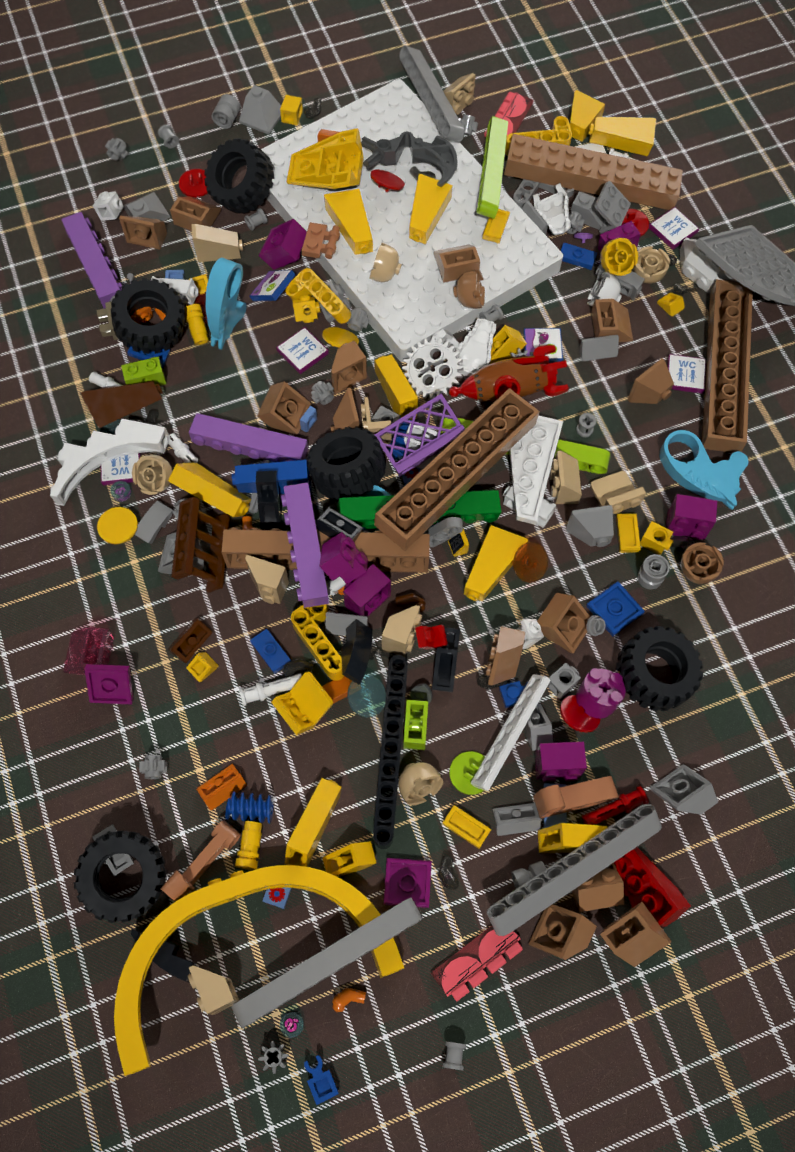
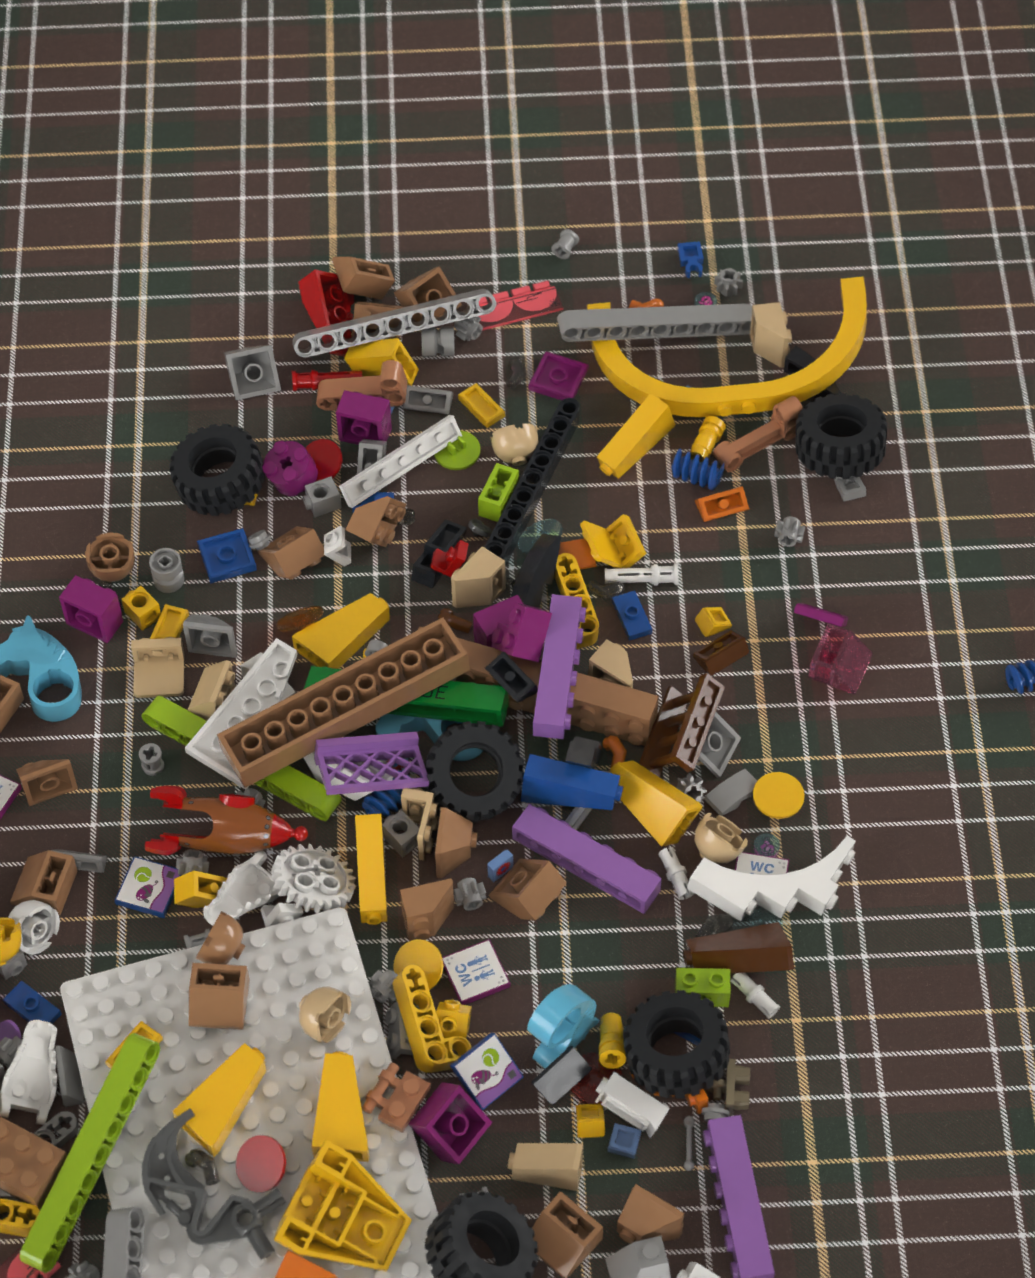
camera: 160 degrees left, 10 degrees down
(350, 859) = (608, 402): yellow slope -> none

